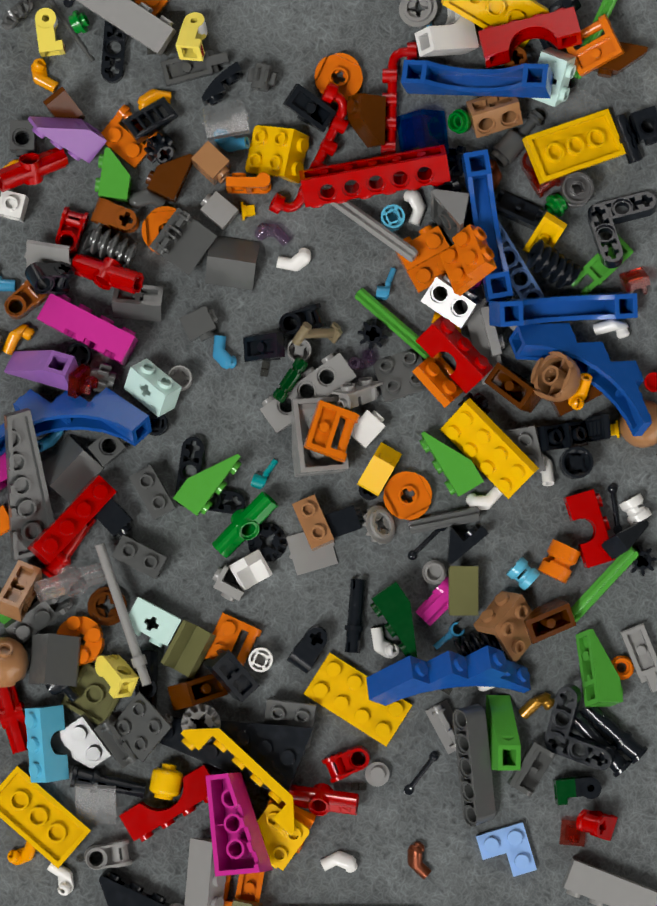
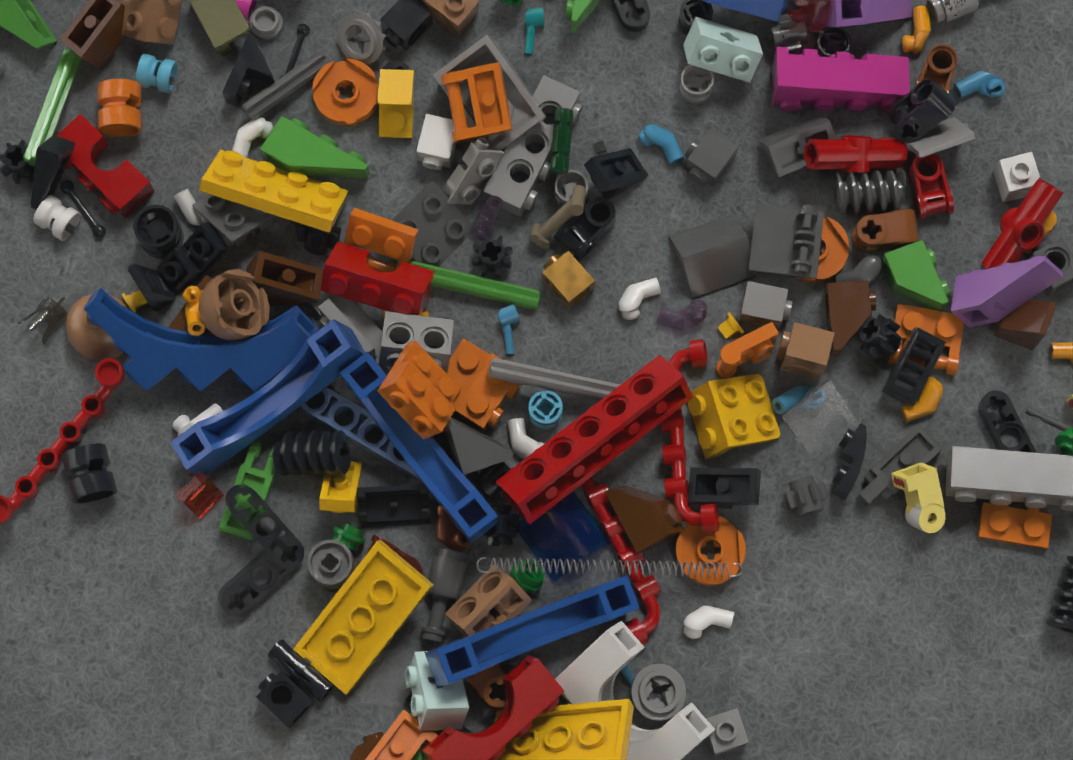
camera: 155 degrees right, 10 degrees down
(333, 294) = (567, 279): none -> pearl gold brick
(365, 39) = (704, 617): none -> white arm
(408, 94) = (609, 566): none -> light grey piece

